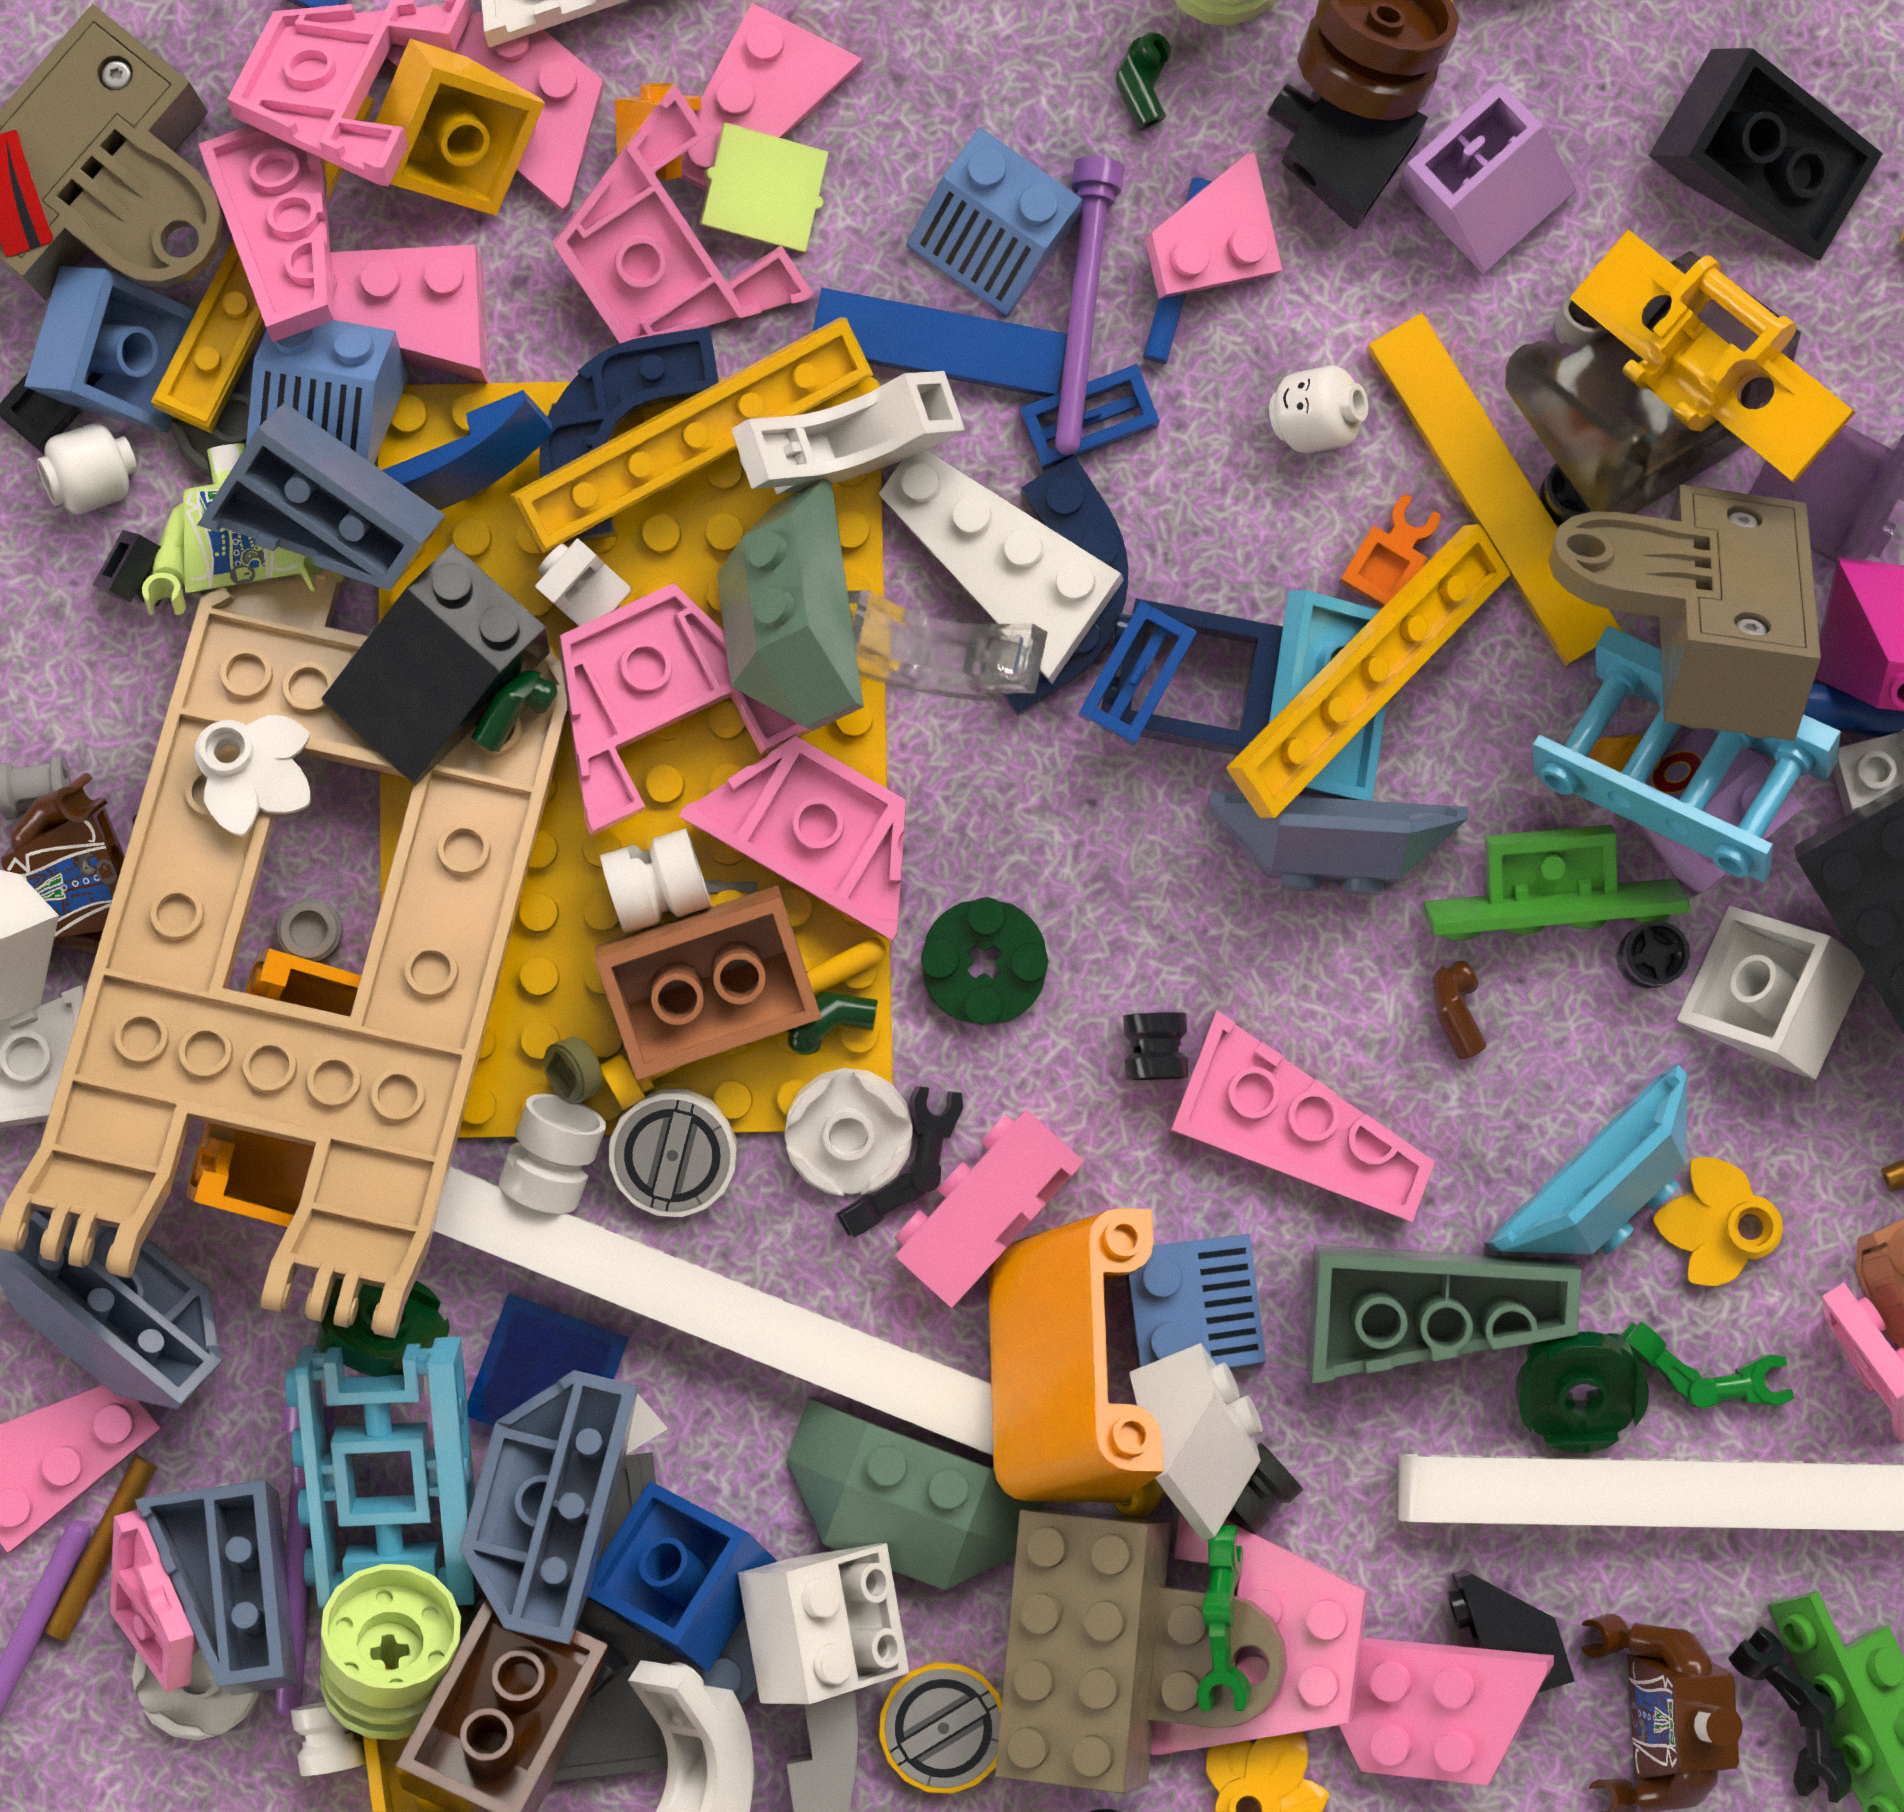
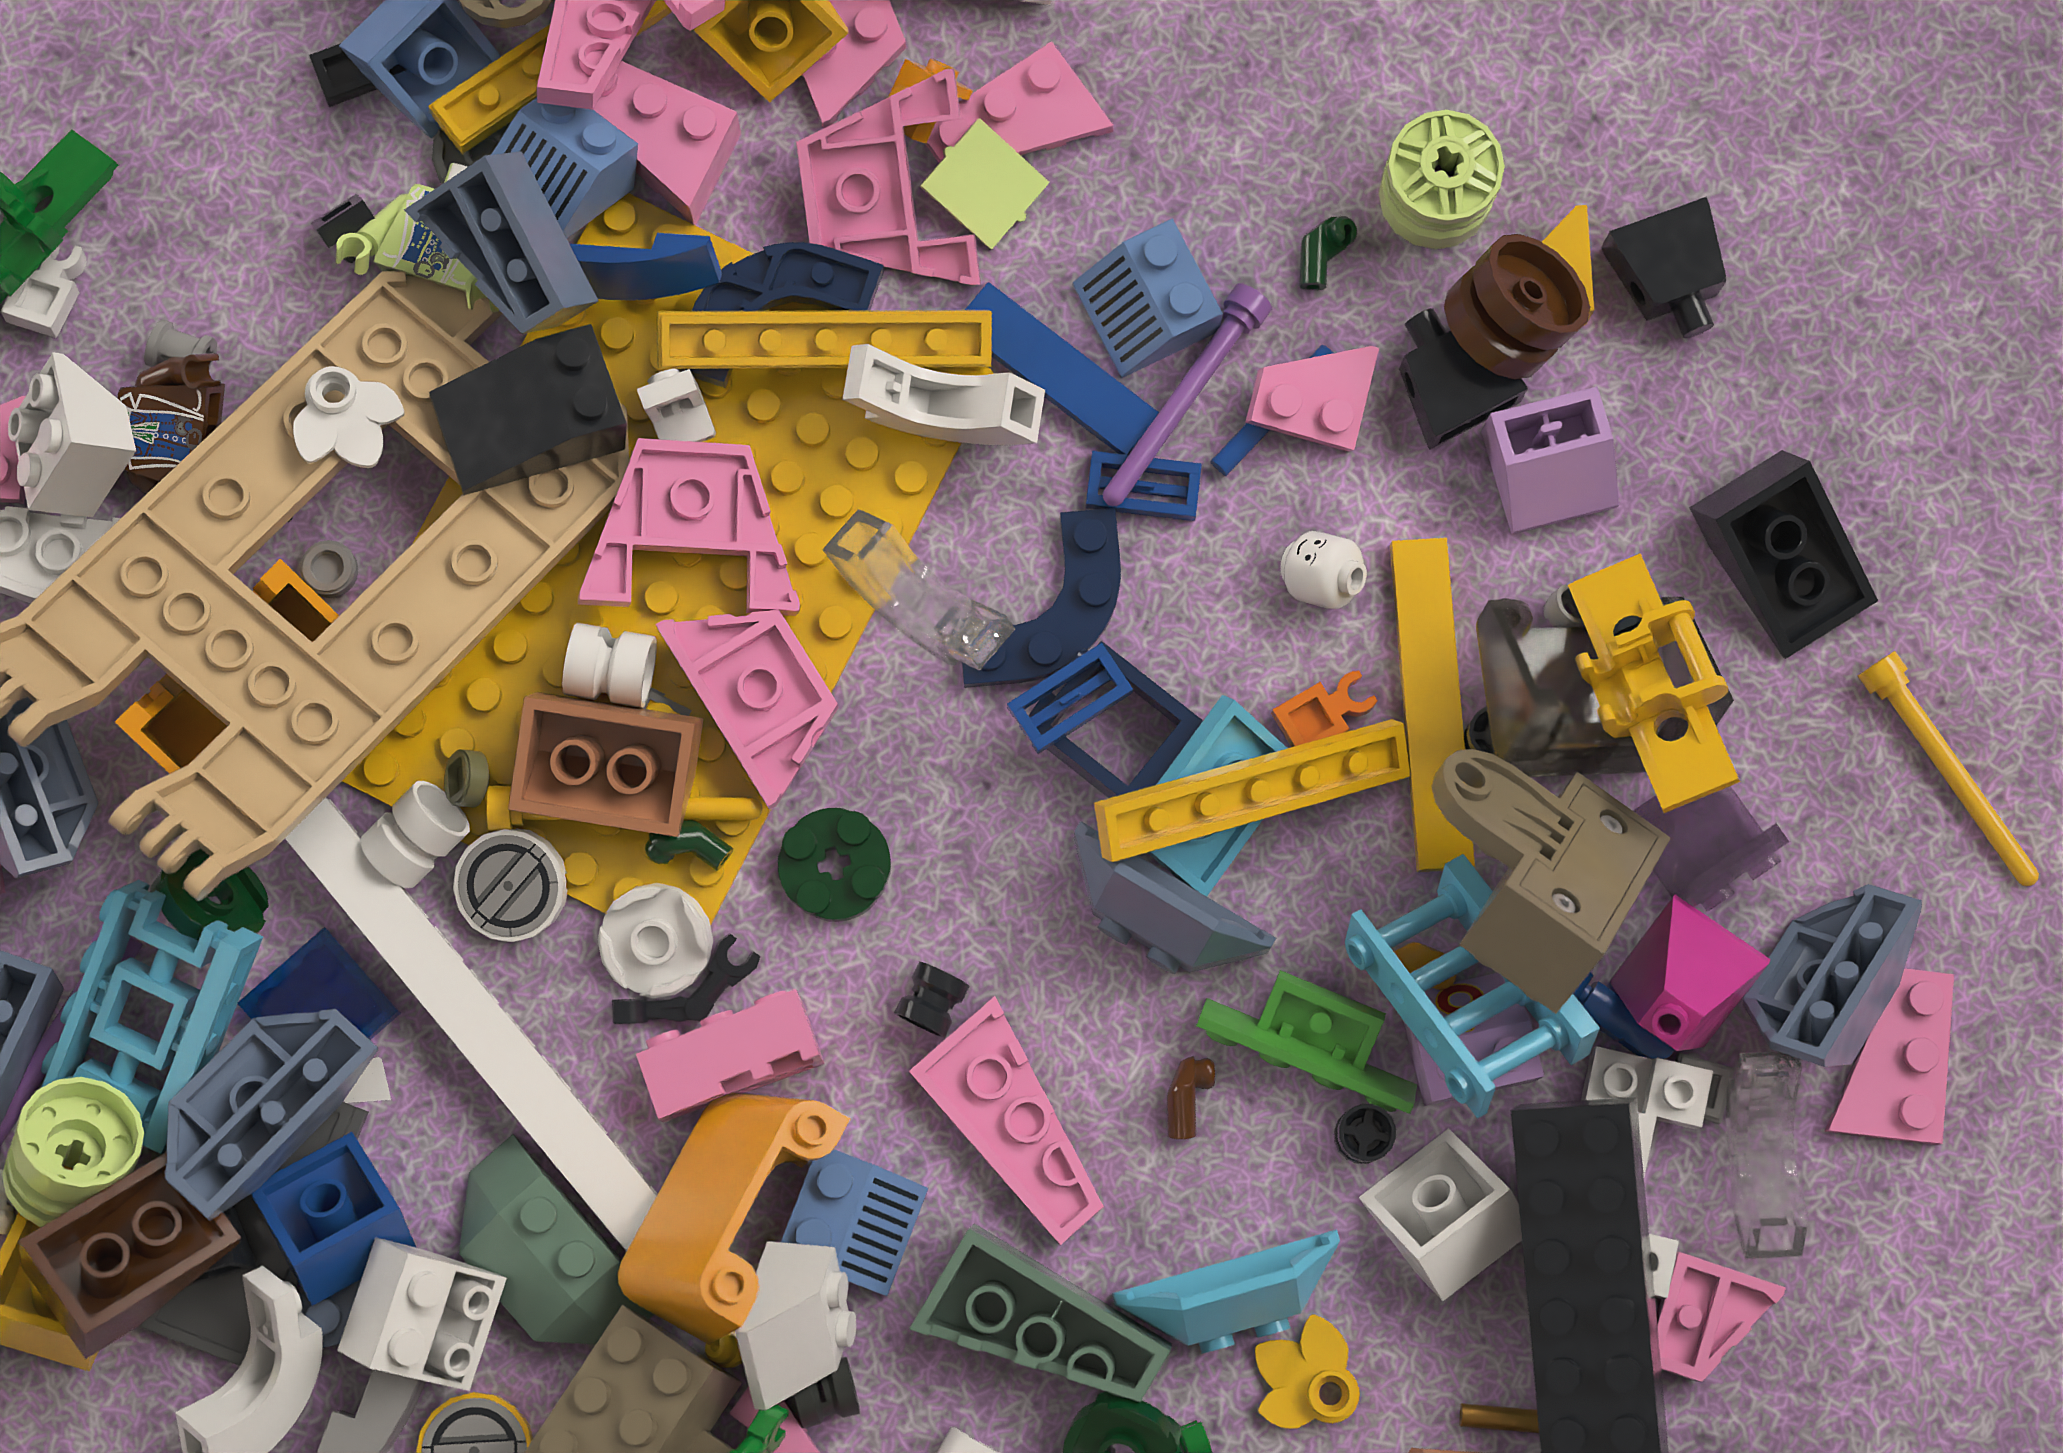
camera: 25 degrees right, 5 degrees down
(86, 468) = (353, 132): white head -> none
(508, 704) = (568, 468): dark green arm -> none
(791, 612) = (826, 512): sand green wedge -> none
(1002, 555) = (1017, 557): white wing -> none

